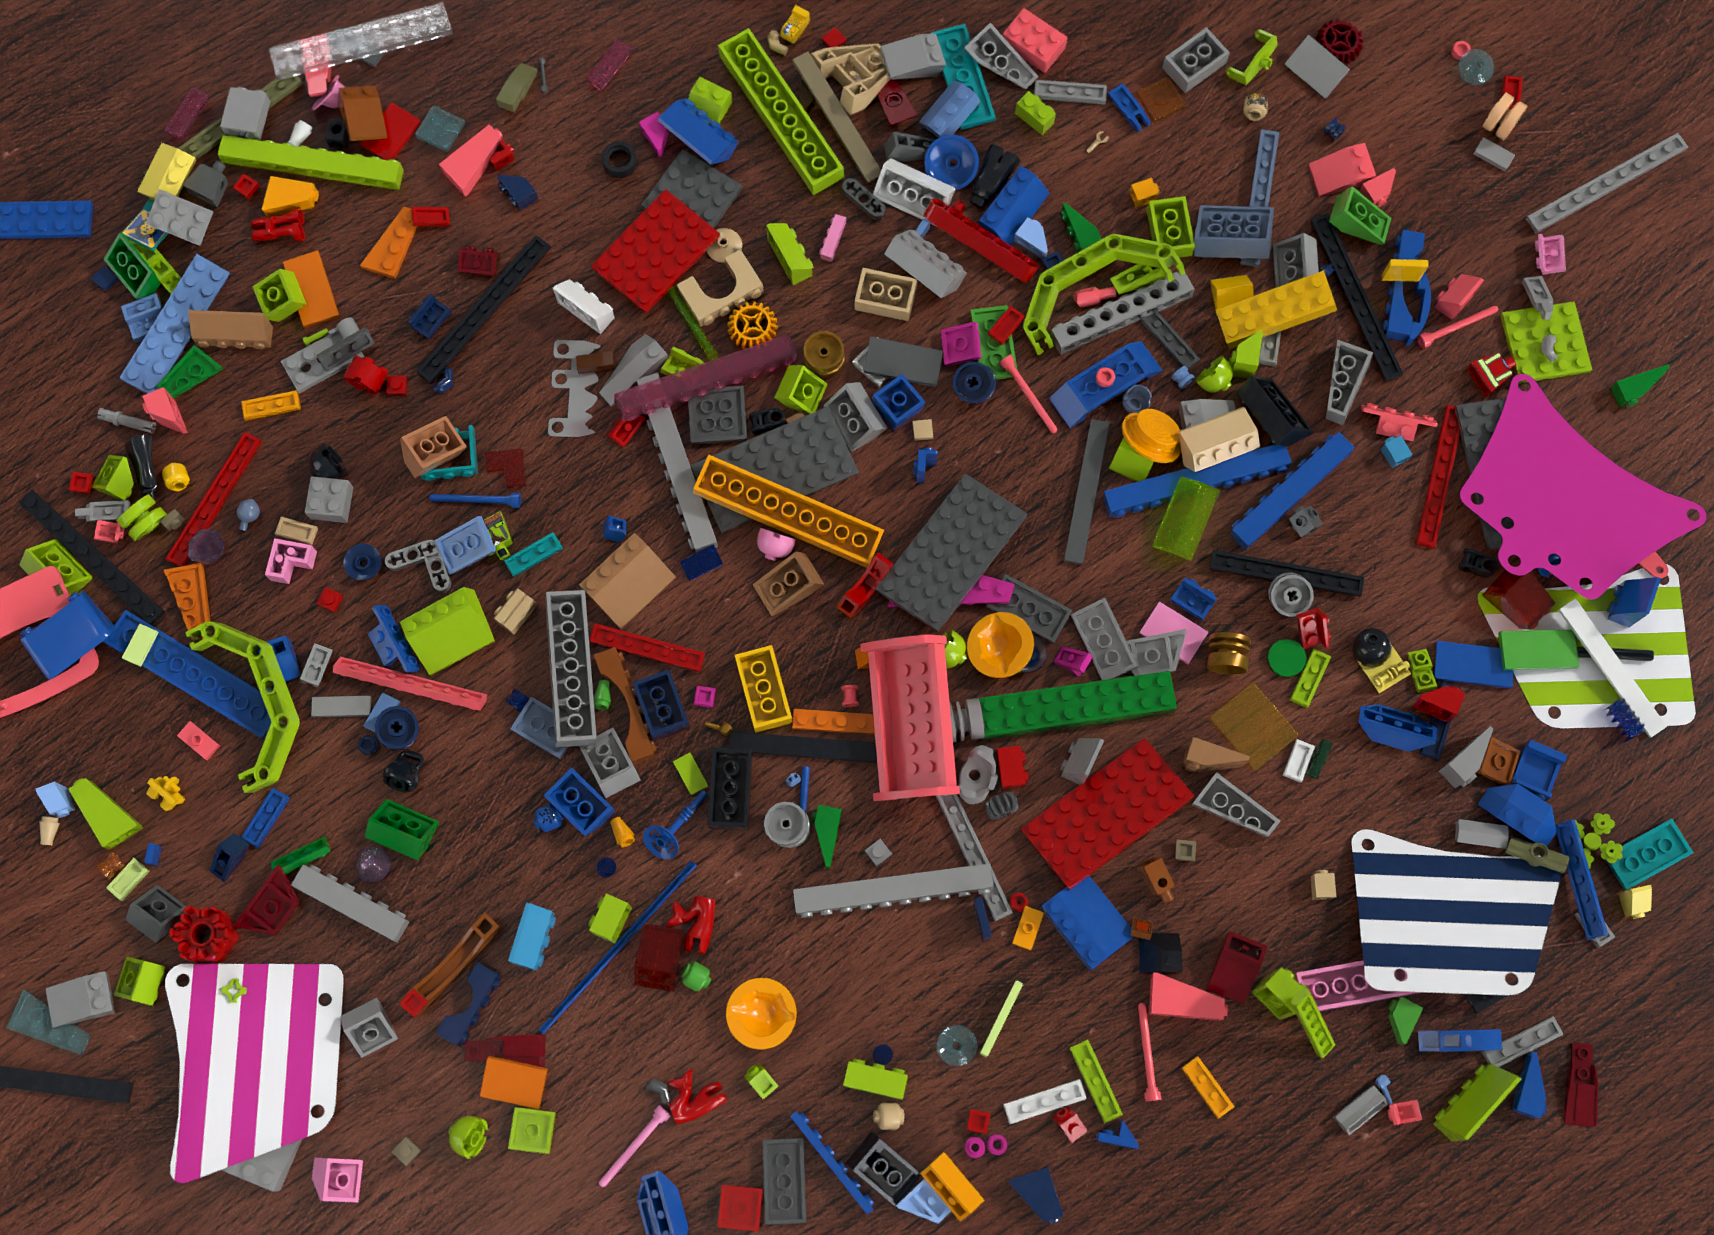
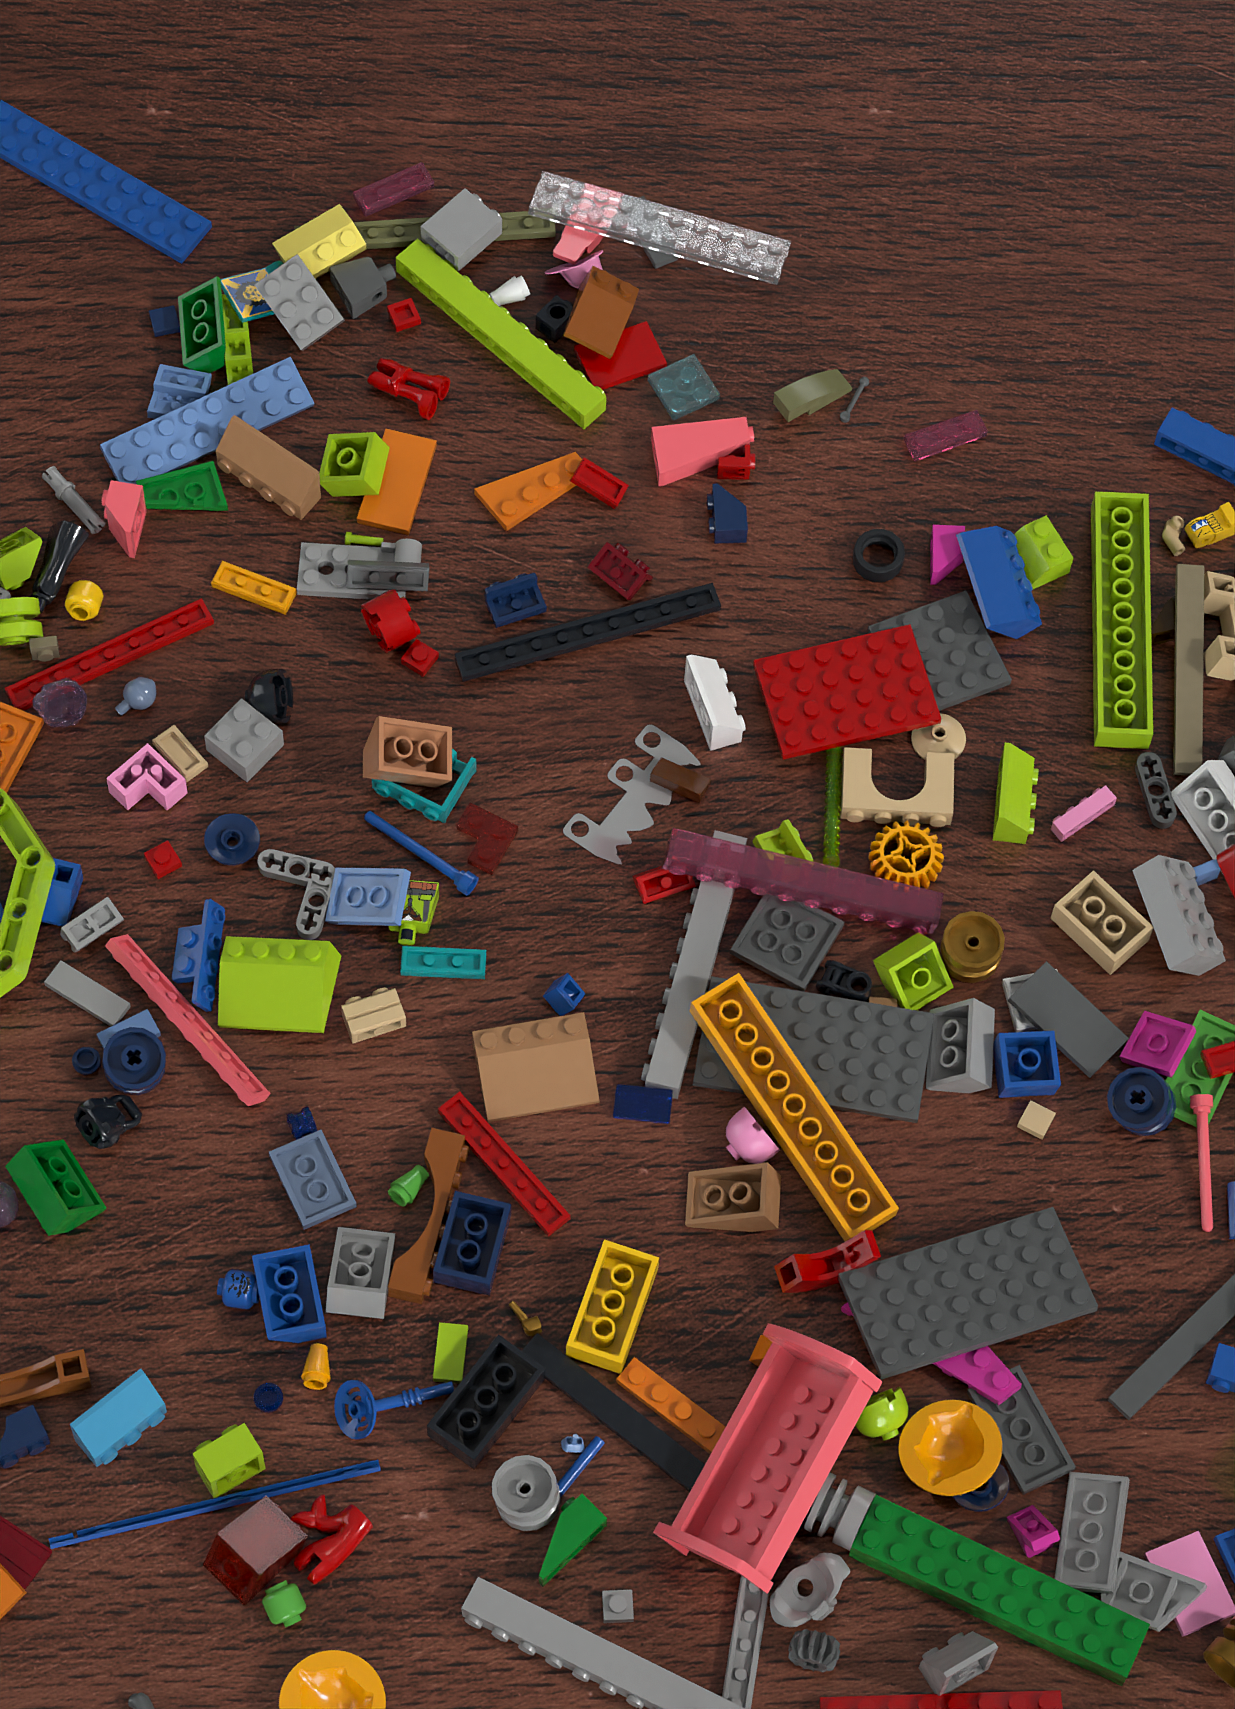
camera: 30 degrees right, 10 degrees down
(288, 194) = (447, 354): light orange slope -> none
(446, 383) = (480, 691): dark blue arm -> none
(570, 668) = (391, 1126): light grey brick -> none
(640, 360) = (739, 812): light grey wedge -> none
(704, 696) = (533, 1270): dark pink tile -> none
(850, 695) = (716, 1387): coral bush -> none
(926, 457) = (1012, 1153): blue bracket -> none
(1010, 767) = (860, 1611): red brick -> none

